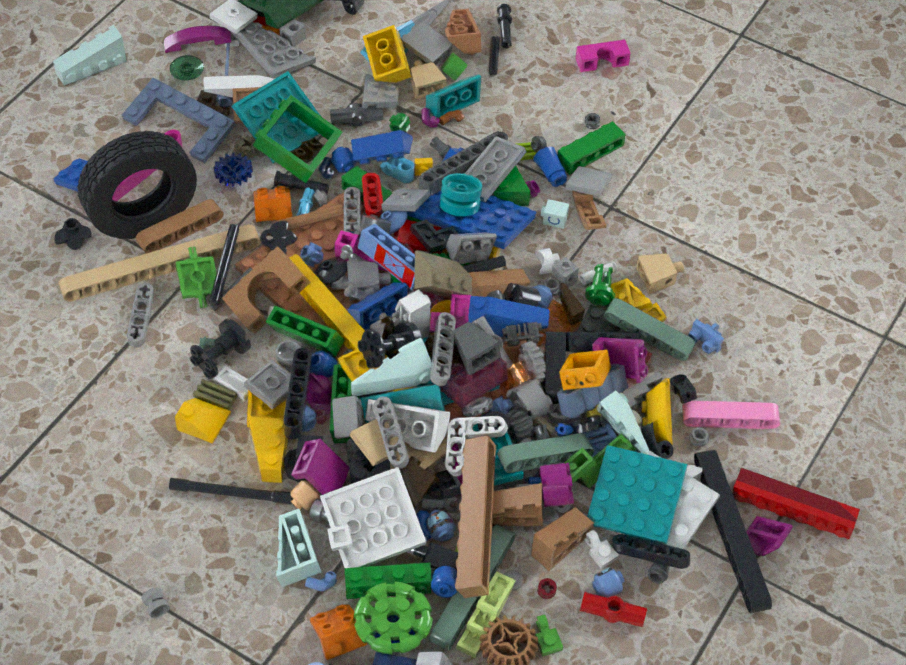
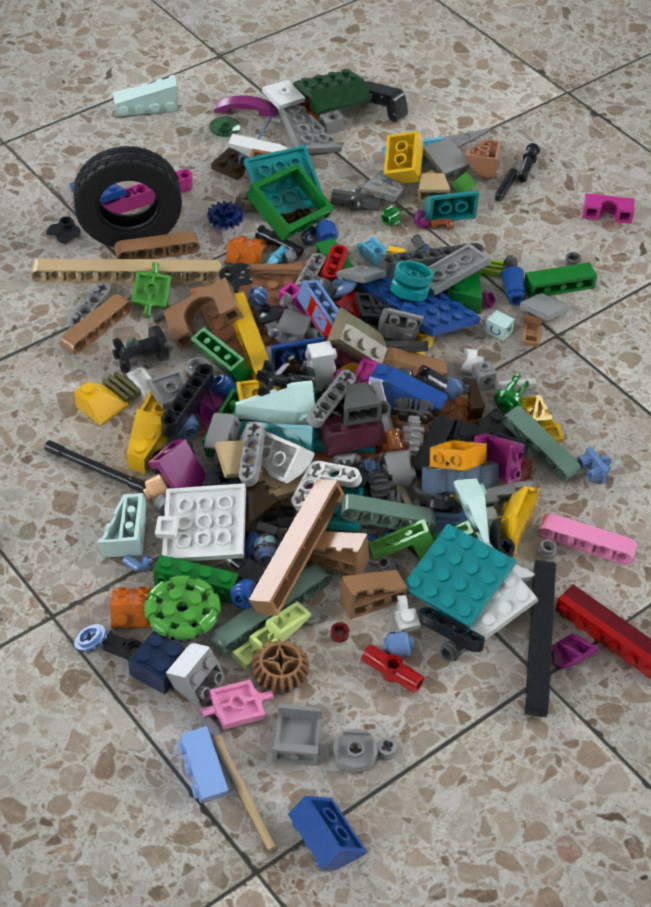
camera: 20 degrees right, 5 degrees down
(155, 91) = (228, 174): sand blue plate -> none
(157, 332) = (95, 324): none -> medium nougat beam
(224, 265) = (178, 284): black axle -> none
(381, 147) = (362, 227): blue slope -> none
(548, 639) = (320, 674): bright green plate -> none
(556, 484) = (382, 540): magenta brick -> none
(563, 430) = (414, 499): blue arm -> none
(658, 271) = (575, 399): tan torso -> none
(683, 388) = (550, 502): black piece -> none

